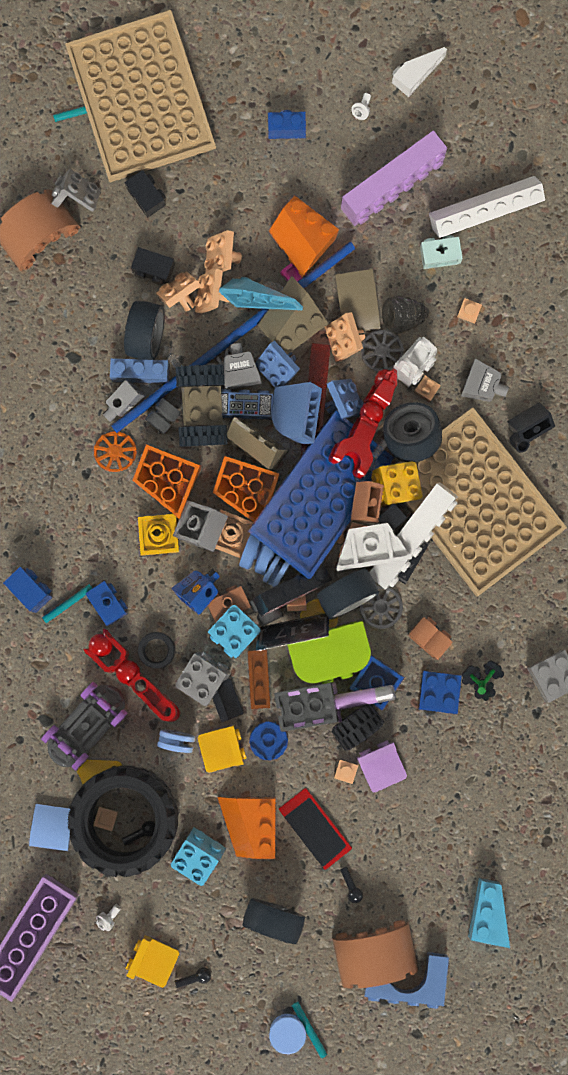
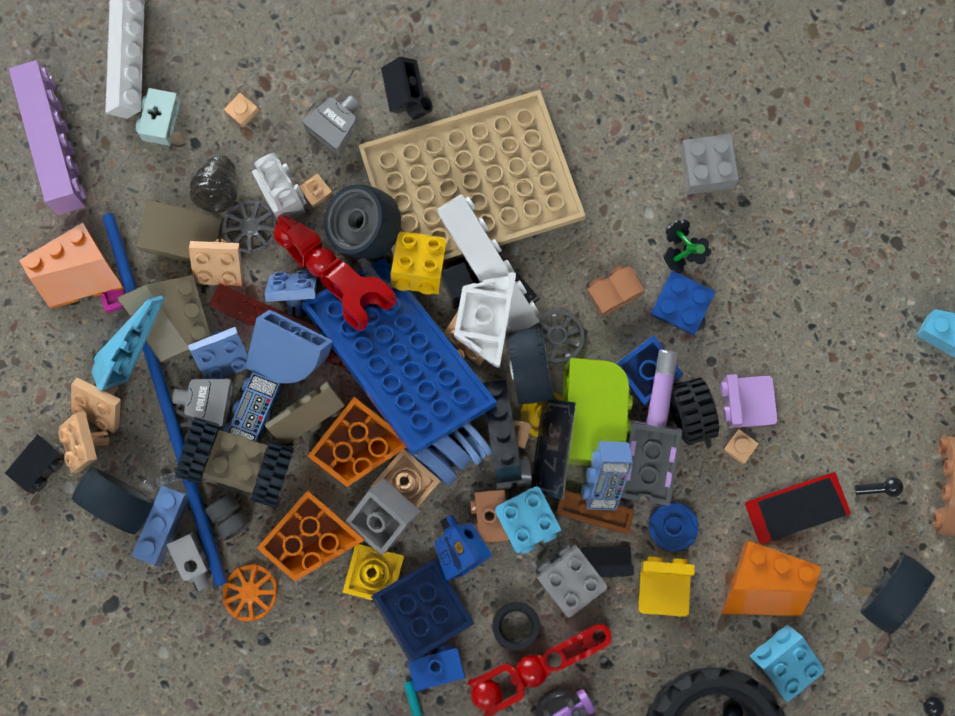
camera: 70 degrees left, 5 degrees down
(143, 578) = (422, 610): none -> dark blue plate
(175, 740) = (636, 642): light blue head -> none
(220, 252) = (52, 374): light nougat plate -> none
(285, 677) = (607, 475): none -> medium blue brick
(367, 502) = (428, 303): nougat brick -> none

